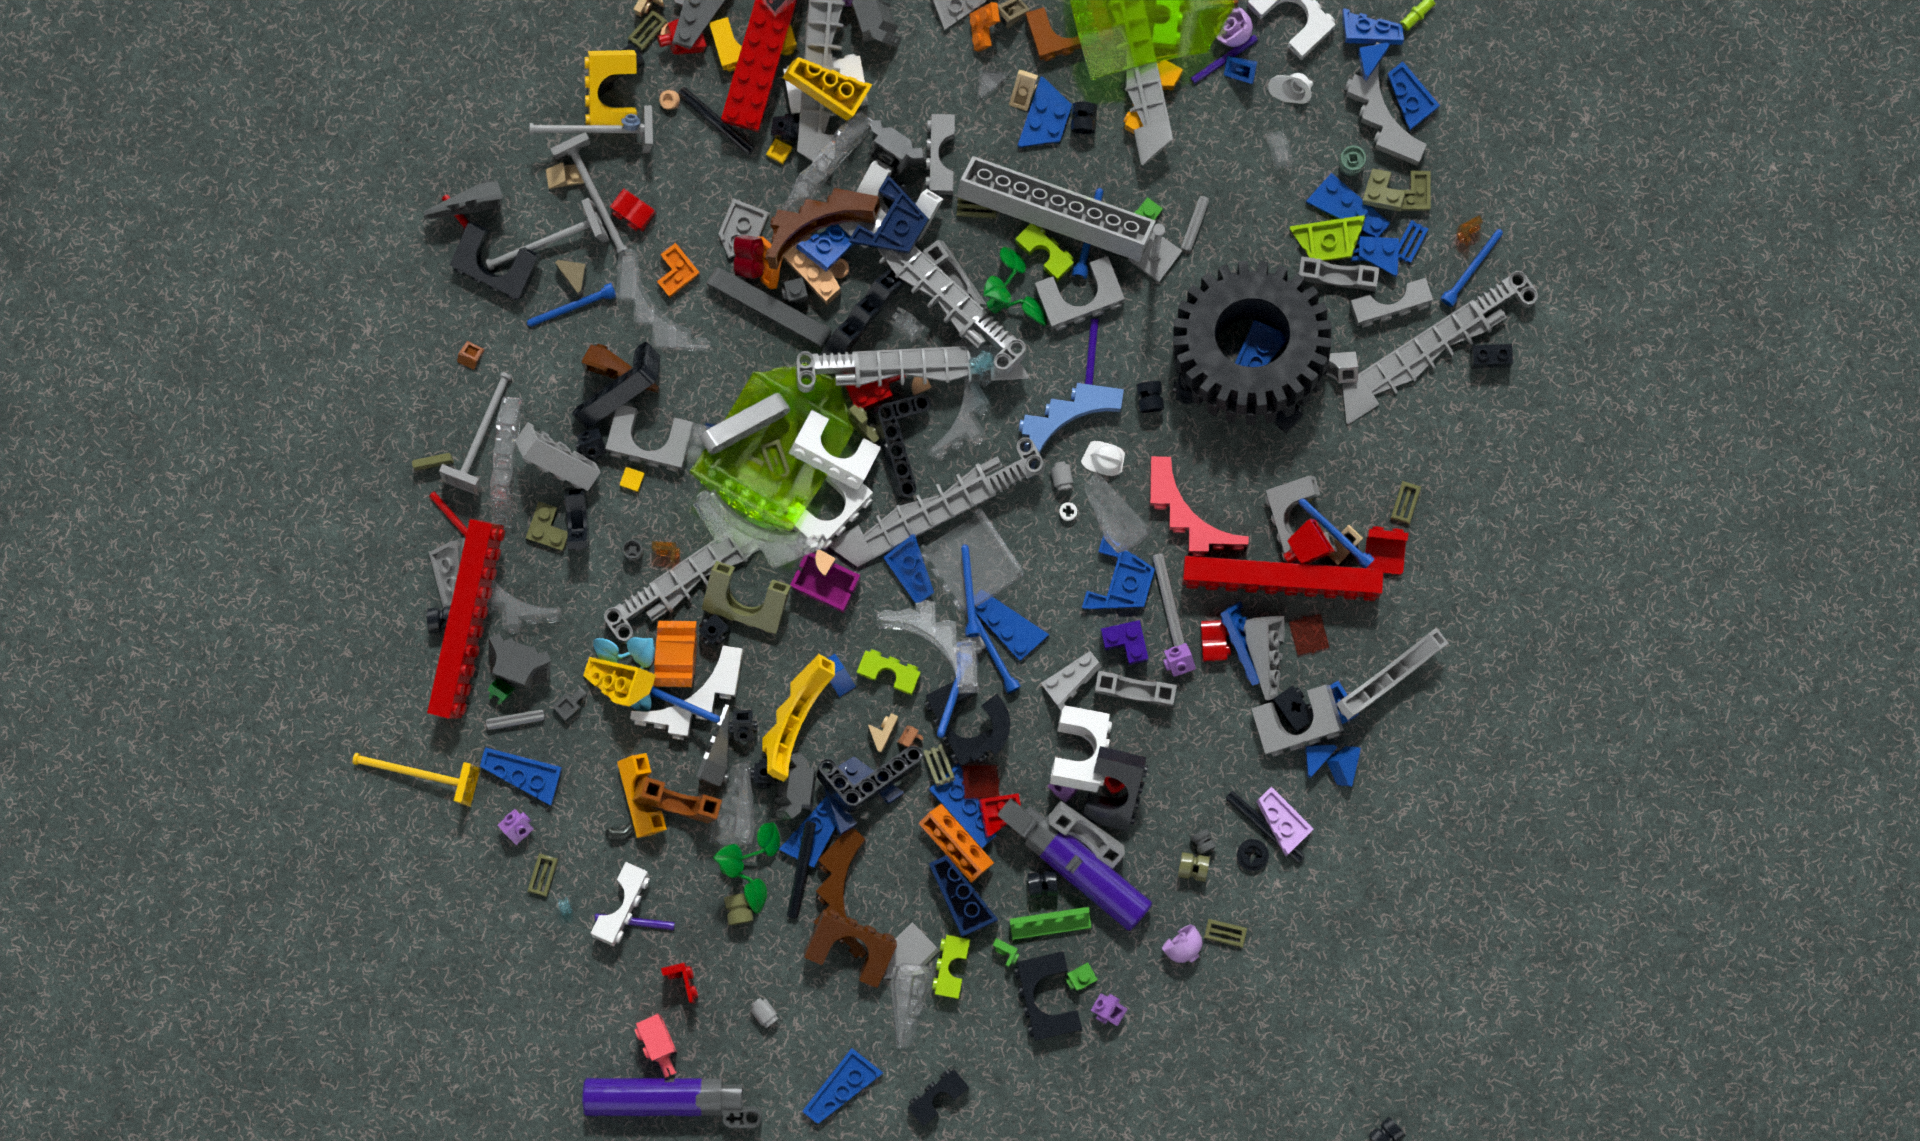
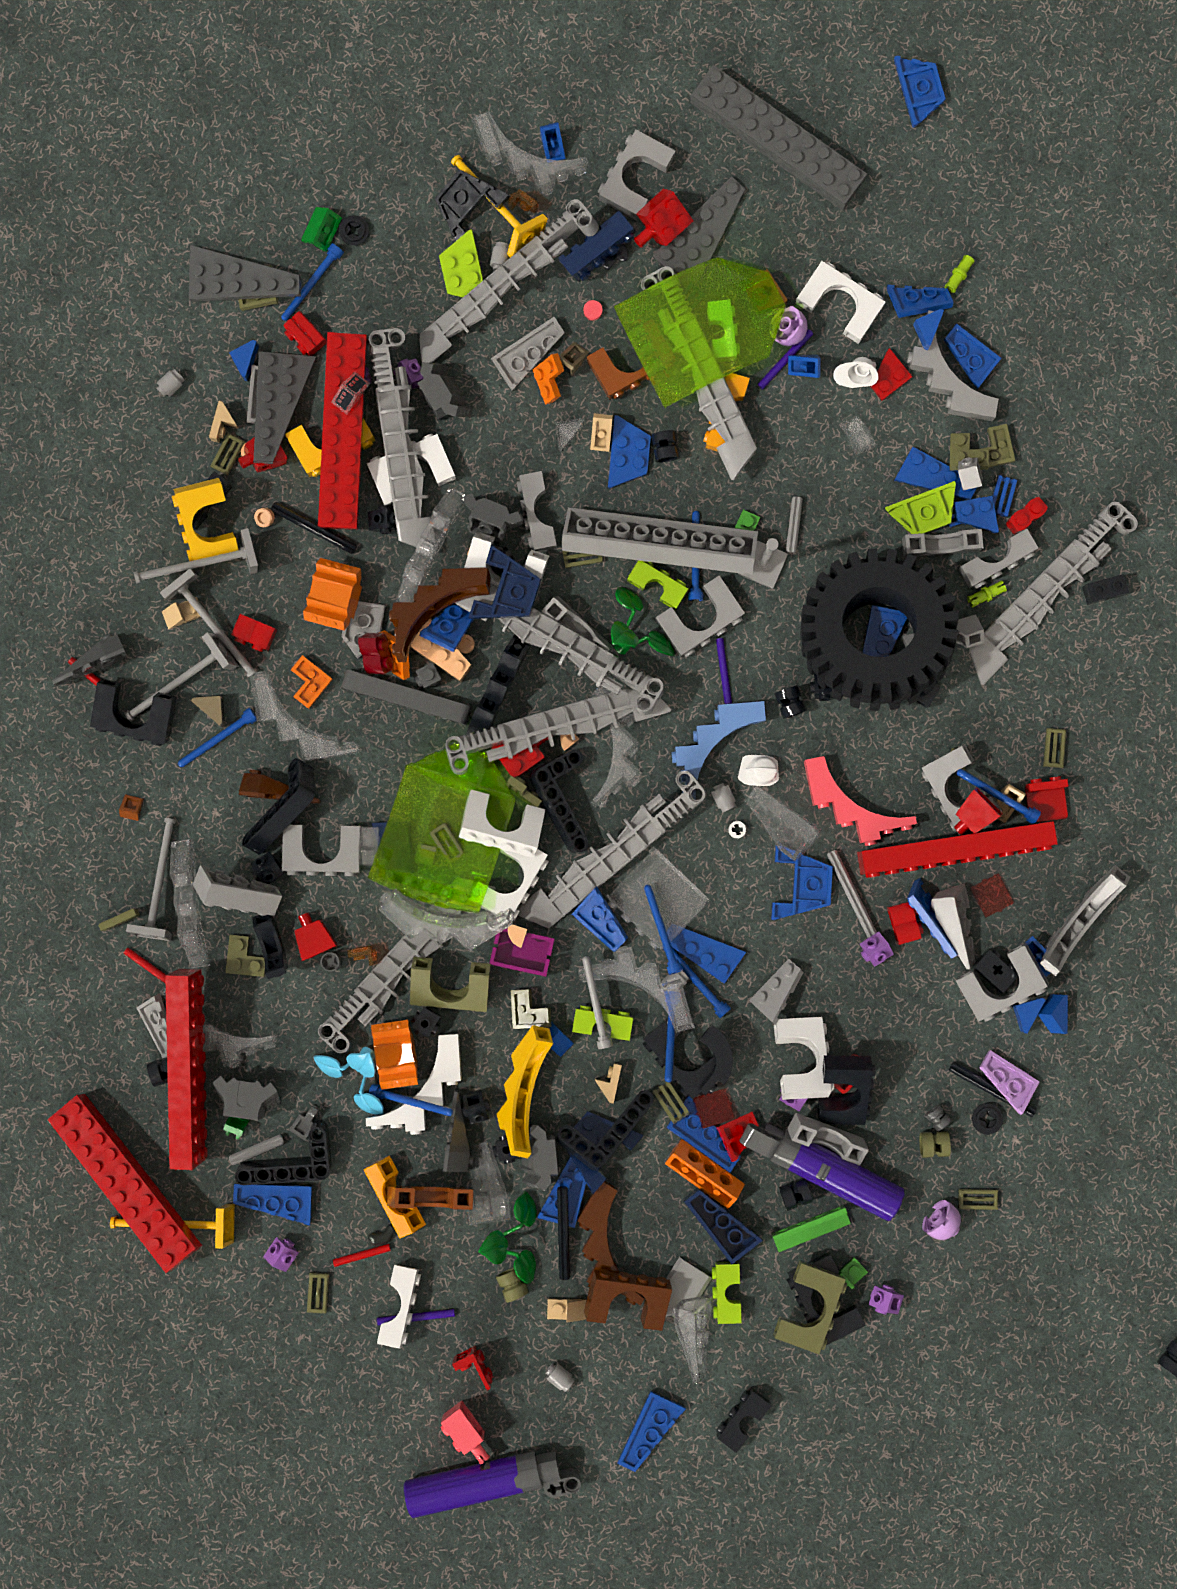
camera: 15 degrees left, 5 degrees up
(378, 719) = (124, 1182): none -> red brick
(546, 741) = (291, 1165): none -> black beam
(565, 906) = (346, 1318): clear light blue bush -> none
(595, 847) = (361, 1255): none -> red bar
(619, 681) = (347, 1094): yellow wedge -> none
(620, 522) = (313, 937): none -> red torso
(631, 122) = (232, 549): sand blue plate -> none
(632, 479) = (314, 892): yellow tile -> none
(720, 189) = (333, 594): none -> orange slope
(744, 423) = (409, 817): beam -> none
(779, 151) = (381, 543): yellow tile -> none
(786, 947) = (566, 1309): none -> tan slope
(813, 643) = (524, 1015): none -> plate
(828, 87) = (414, 472): yellow wedge -> none
(886, 686) = (603, 1039): none -> light grey piece
(902, 322) = (537, 683): clear slope -> none
(908, 736) = (635, 1080): nougat tile -> none
(982, 362) = (624, 706): clear light blue brick -> none
(1004, 948) = (772, 1263): bright green bracket -> none
(1026, 1024) = (813, 1334): none -> olive arch
(1130, 637) = (822, 937): dark purple brick -> none
(1137, 690) = (841, 986): light grey arch -> none
(1325, 98) = (890, 376): none -> red wing
(1352, 160) = (930, 430): sand green wheel -> none
(1372, 334) = (986, 594): none -> lime pin
(1380, 210) = (970, 473): none -> brick
(1434, 264) = (1029, 513): none -> red brick
(1450, 297) = (1052, 541): blue piece -> none
(1470, 226) = (1058, 468): clear orange bracket -> none

